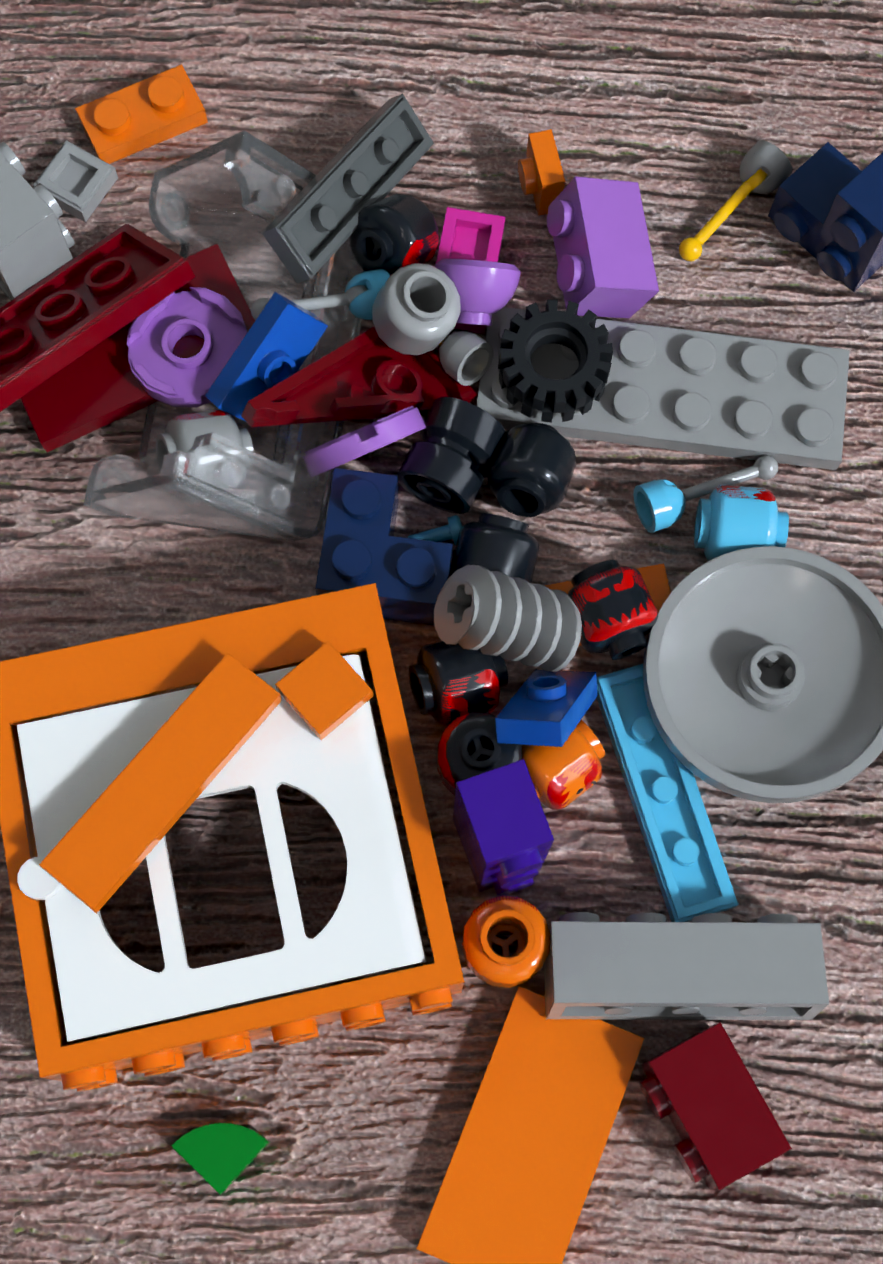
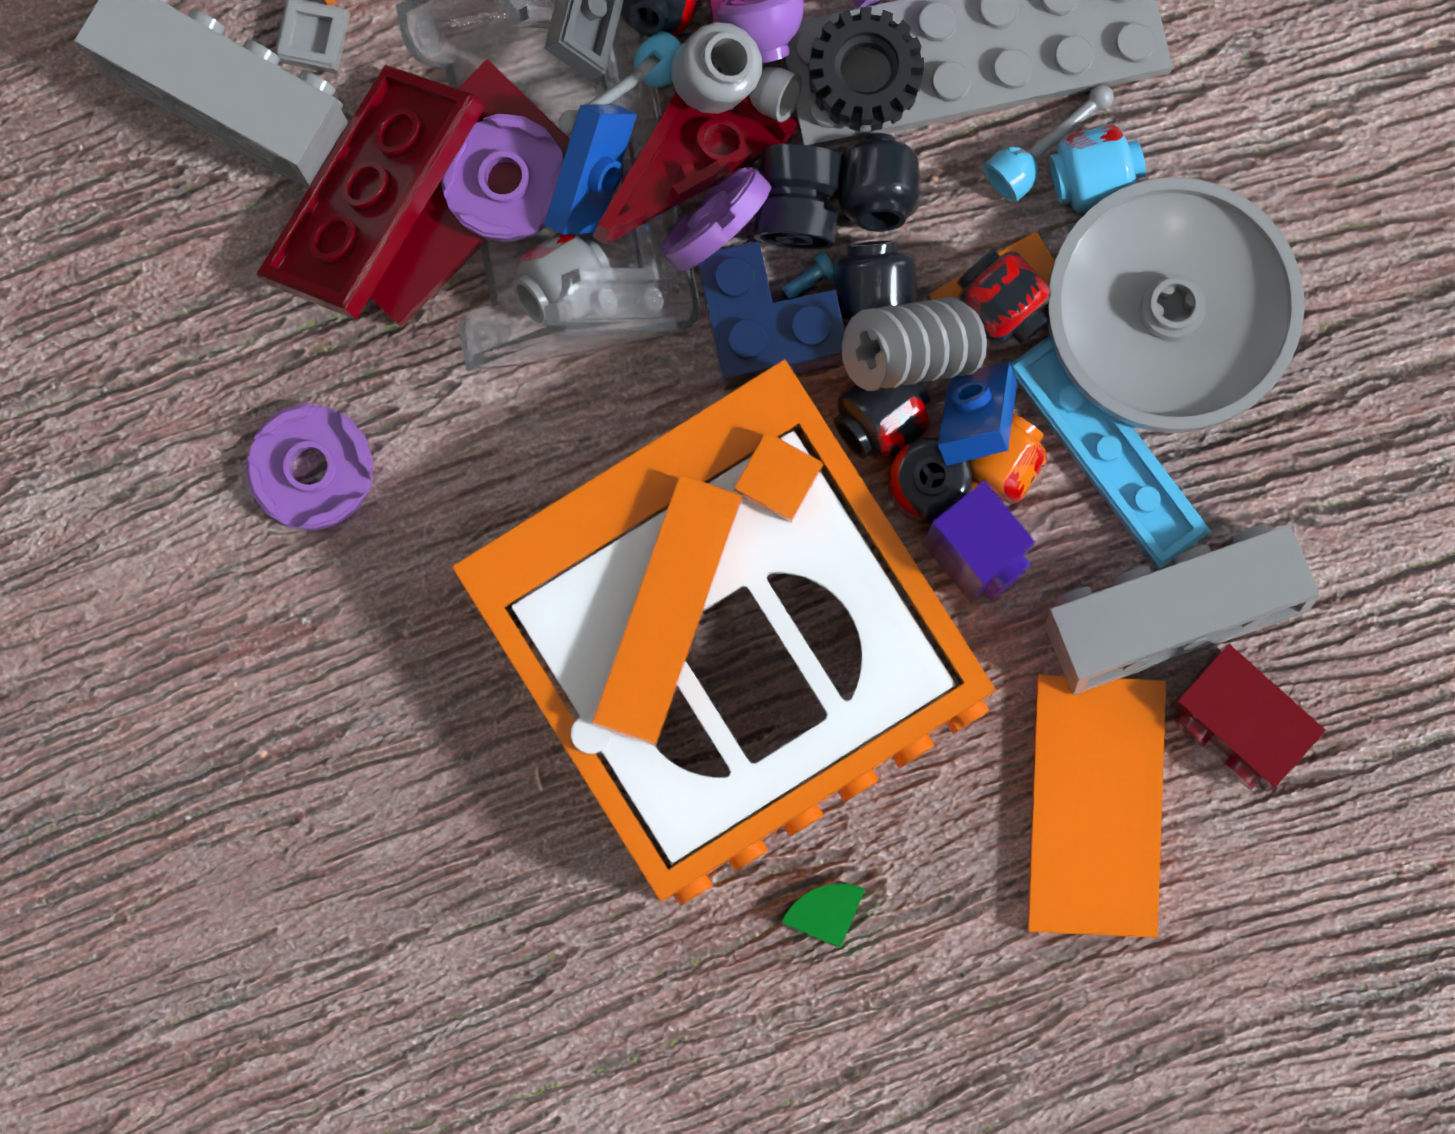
camera: 15 degrees left, 10 degrees up
(512, 917) = (1024, 619): orange head -> none

